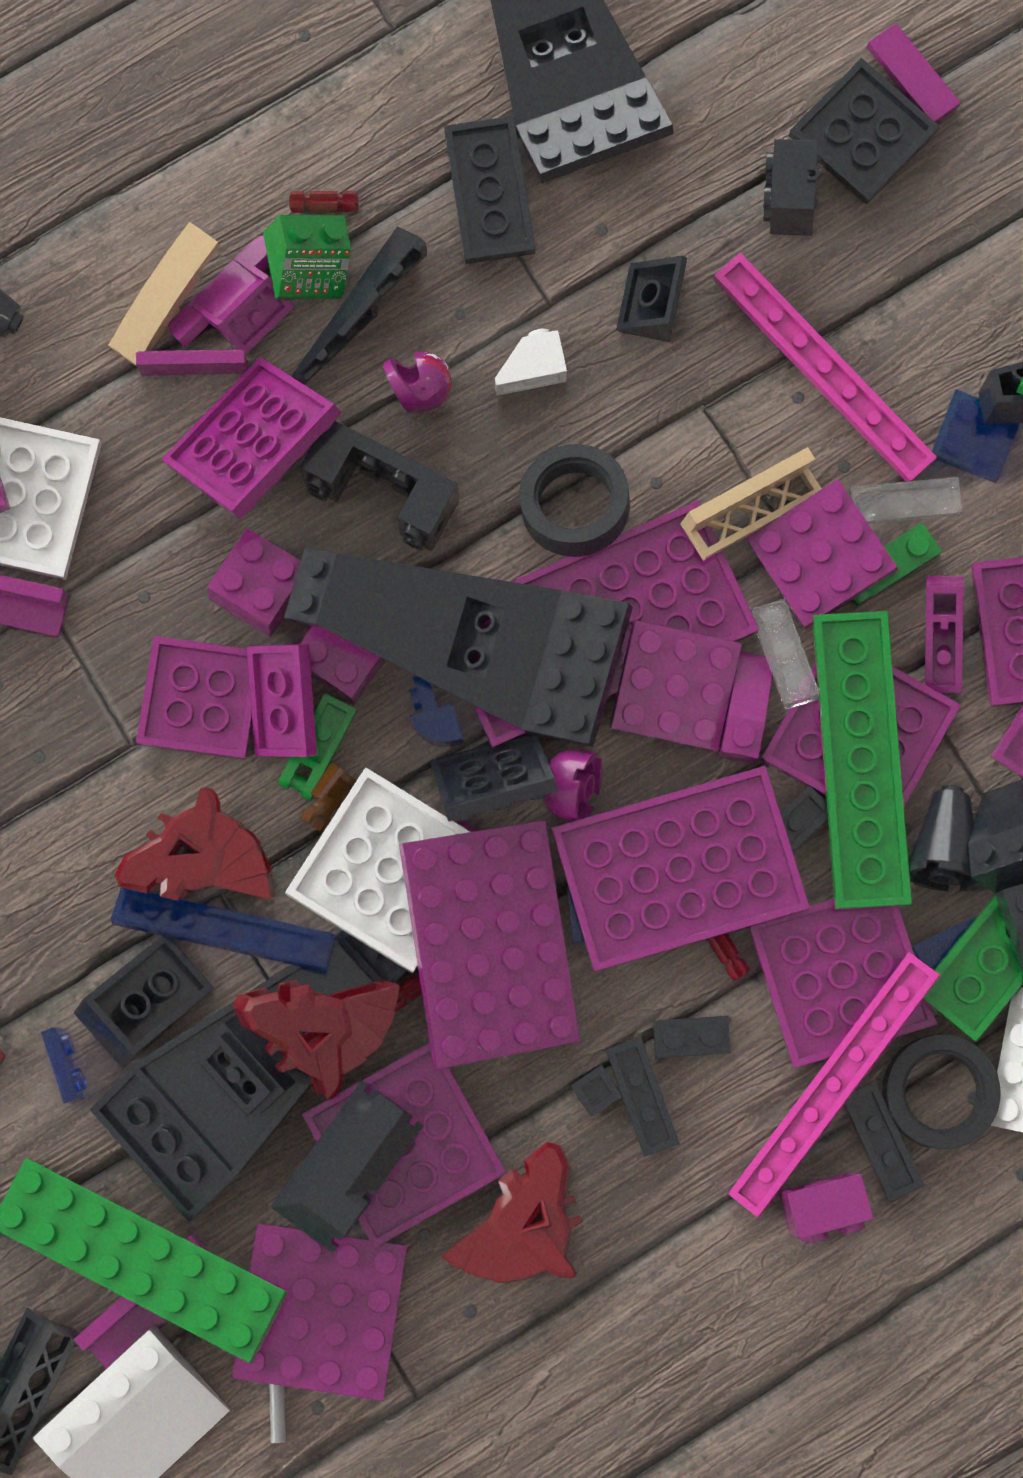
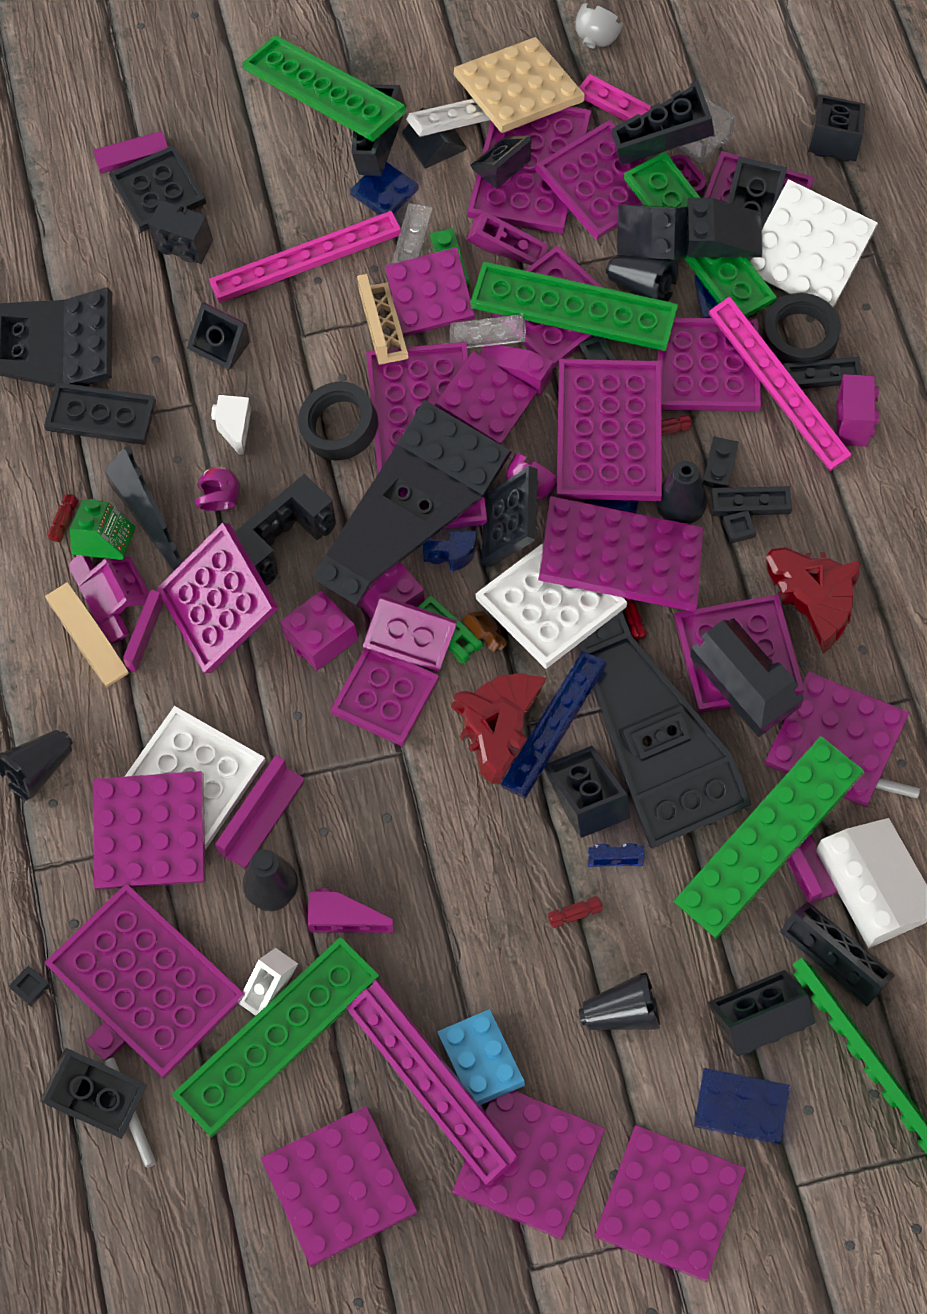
camera: 70 degrees left, 15 degrees down
(338, 1027) = (648, 667): dark red animal -> none
(604, 1012) = (683, 494): none -> black cone

